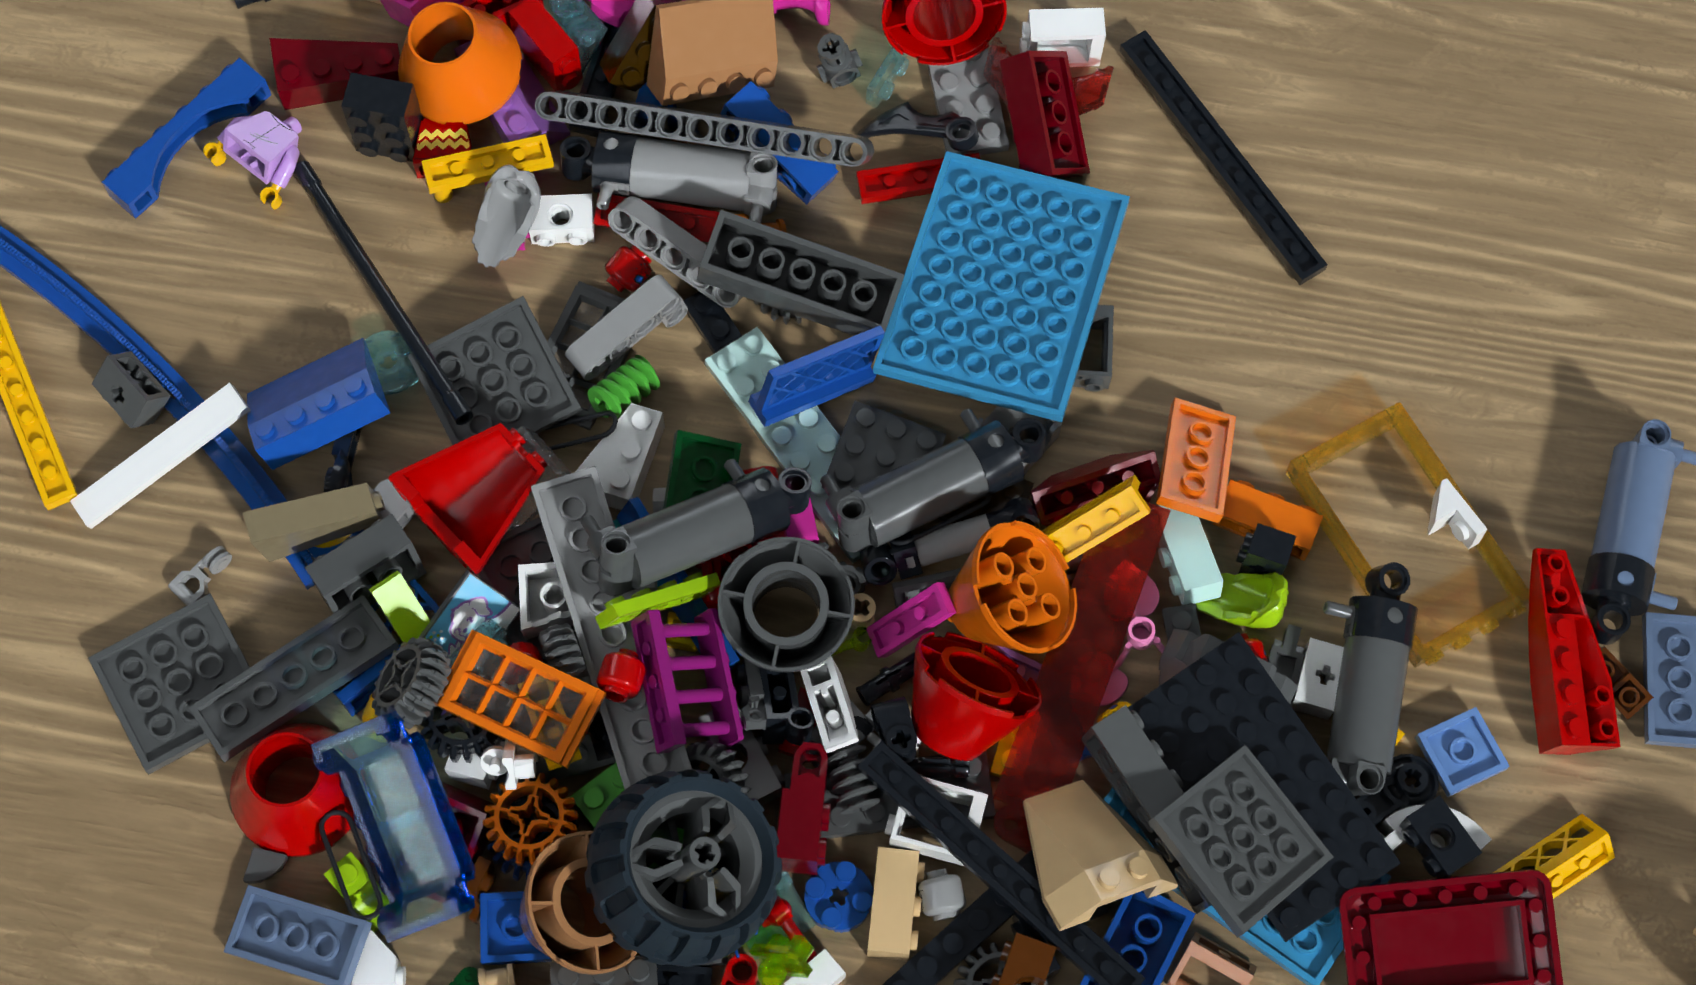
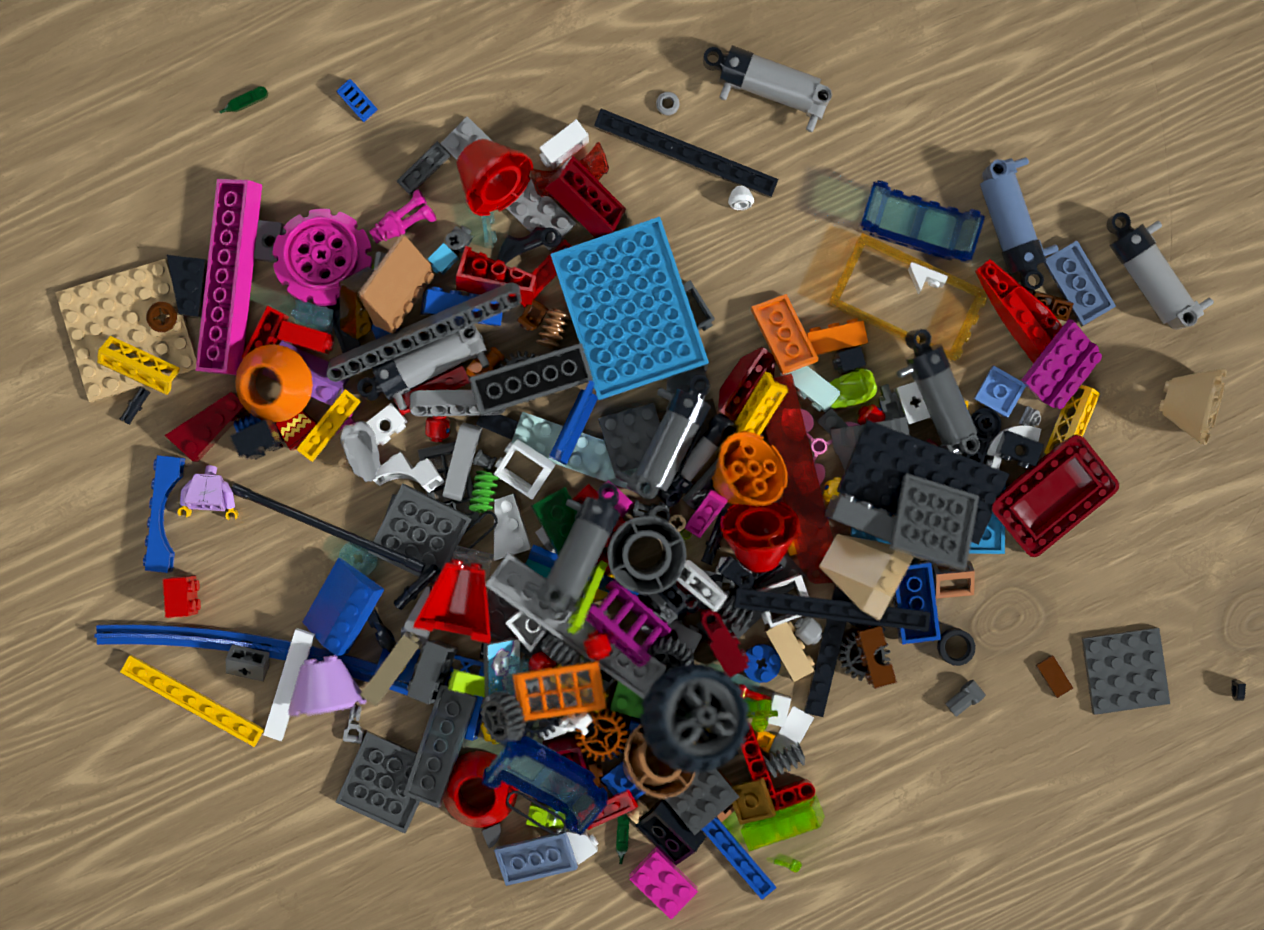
camera: 35 degrees left, 20 degrees up
(119, 244) = (181, 596): none -> red brick
(201, 481) = (324, 687): none -> lavender cone
(402, 456) = (411, 592): none -> black pin
(459, 944) = (616, 806): none -> red plate
(537, 283) = (400, 468): none -> white arch
(657, 352) = (484, 461): none -> dark grey bush
(682, 369) = (514, 480): none -> white window
(798, 74) = (442, 259): none -> medium azure brick
(836, 108) = (481, 274): none -> red wedge
(864, 217) = (532, 316): none -> reddish brown bracket
(882, 244) = (553, 328): none -> medium nougat piece
(1237, 94) = (667, 95): none -> light grey piece
(1257, 256) = (741, 198): none -> white cone
(1400, 135) = (770, 80): none -> light grey piece
(1488, 444) = (921, 224): none -> windscreen
(1488, 818) = (1030, 417): none -> light grey plate
(1580, 769) = (1062, 366): none -> magenta plate

